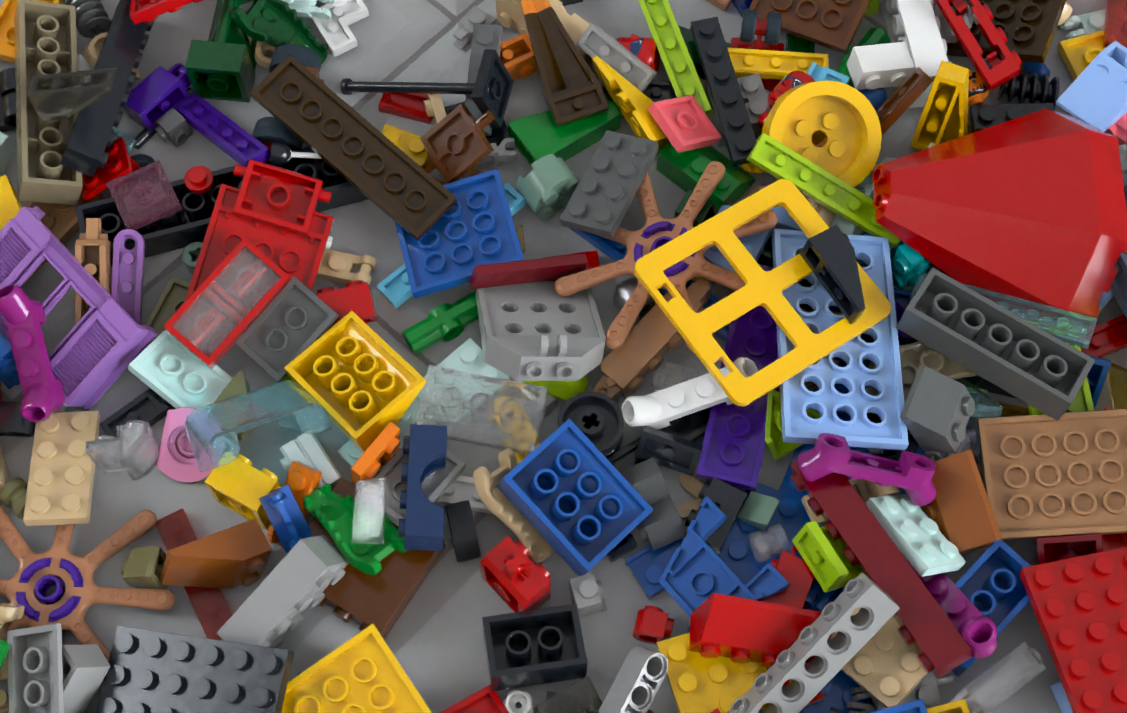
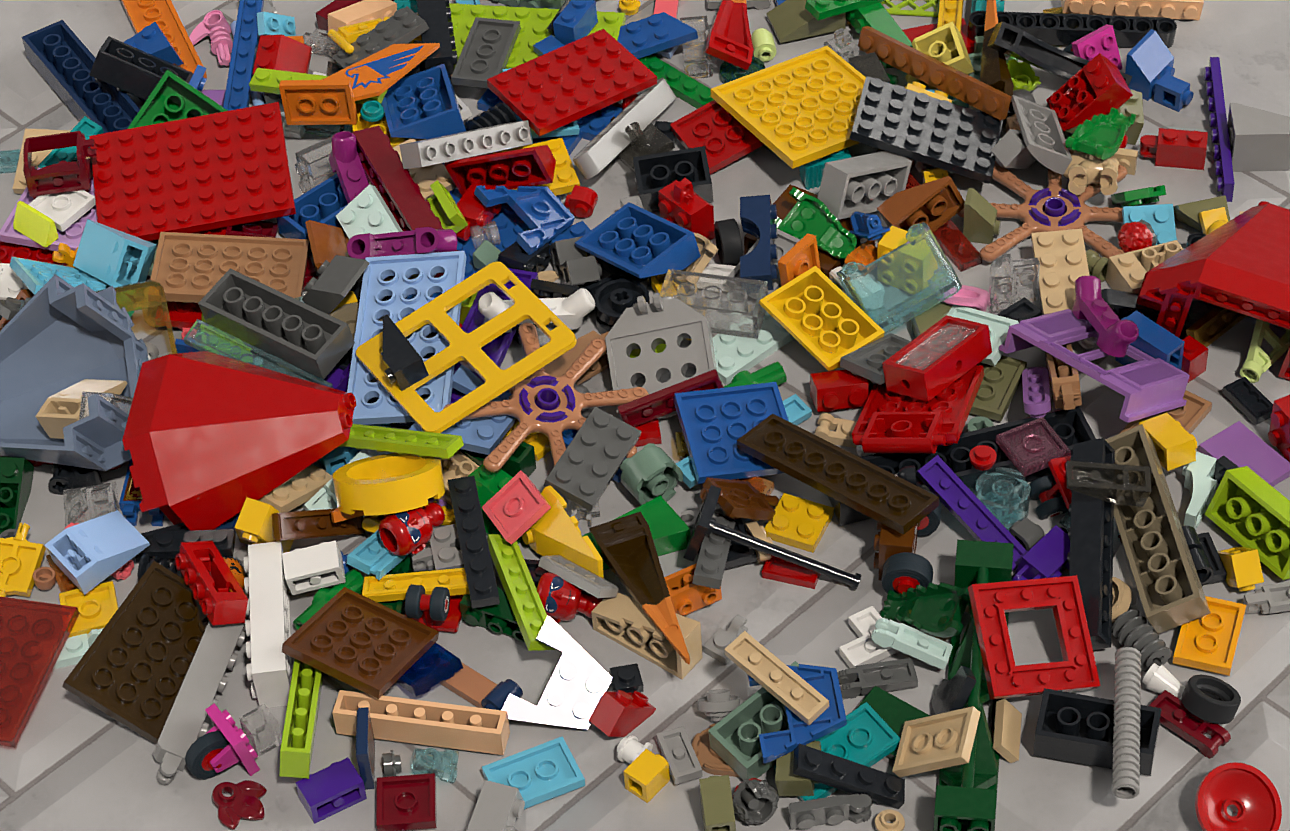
camera: 175 degrees left, 20 degrees down
(184, 151) = (1004, 495): none -> clear light blue brick
(369, 511) = (799, 223): clear slope -> none

